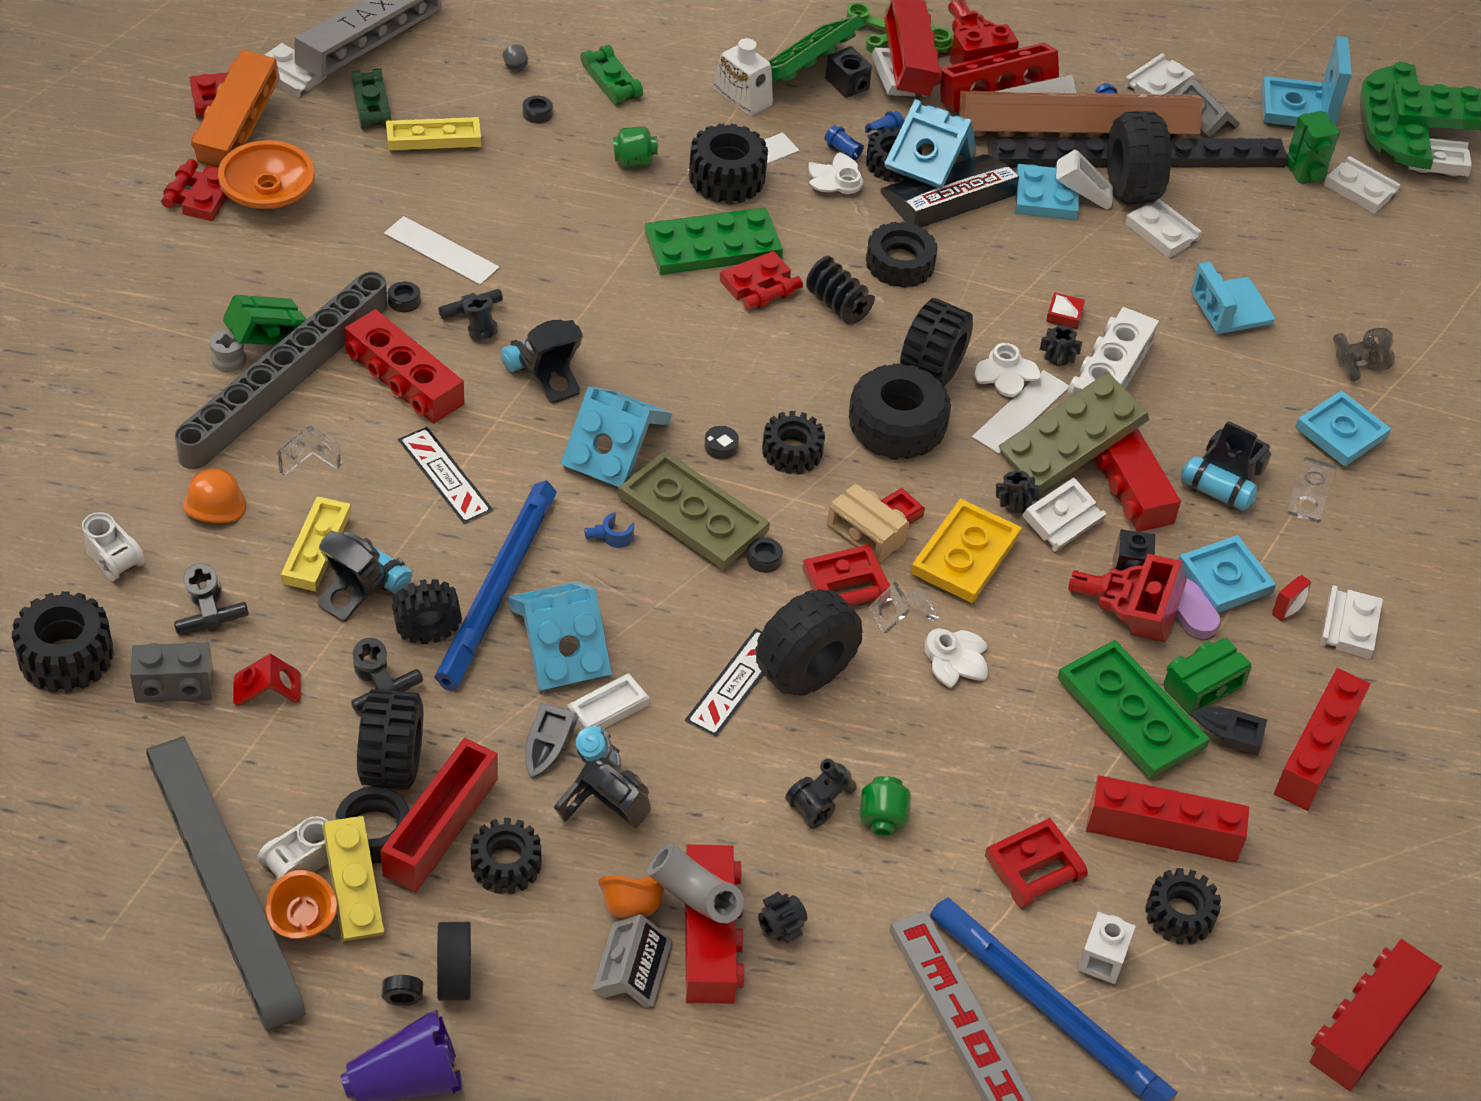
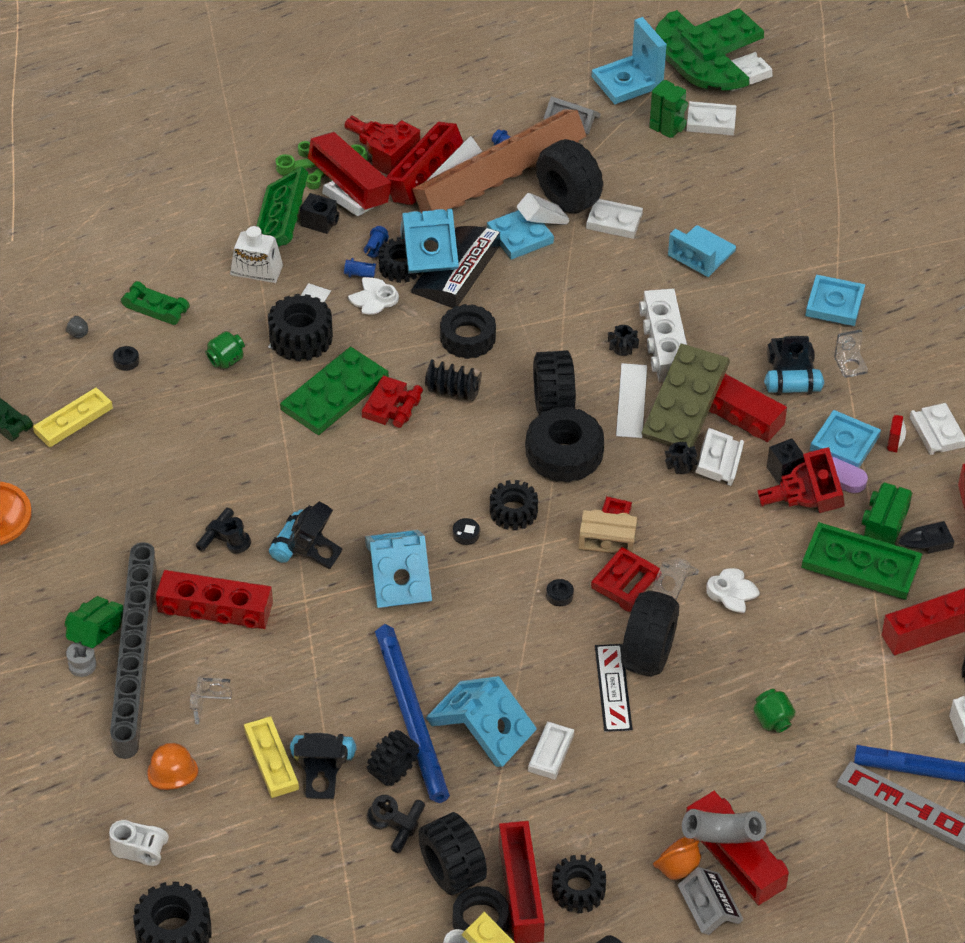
camera: 30 degrees left, 0 degrees up
(171, 672) = (262, 898): dark grey brick -> none
(207, 598) = (246, 846): black piece -> none
(263, 676) = (323, 868): red bracket -> none
(404, 296) = (164, 549): black tile -> none
(441, 250) = (154, 501): white sticker -> none
(445, 475) = (306, 659): sticker -> none
(548, 736) = (536, 793): plate -> none
(605, 780) = (604, 798): black piece -> none
(610, 537) = (451, 638): blue piece -> none
(693, 509) = (491, 588): olive plate -> none
(782, 917) = (777, 816): black gear -> none
(820, 792) = (731, 727): black piece -> none
(966, 550) = (681, 516): yellow plate -> none
(1006, 370) = (602, 377): white plate -> none
(1031, 851) = (877, 688): red plate -> none
(1065, 310) = (602, 312): red tile -> none
(1158, 77) = (523, 107): white plate -> none
(1185, 152) = (510, 195): black plate -> none
(1365, 352) = (808, 240): clear smoke piece -> none

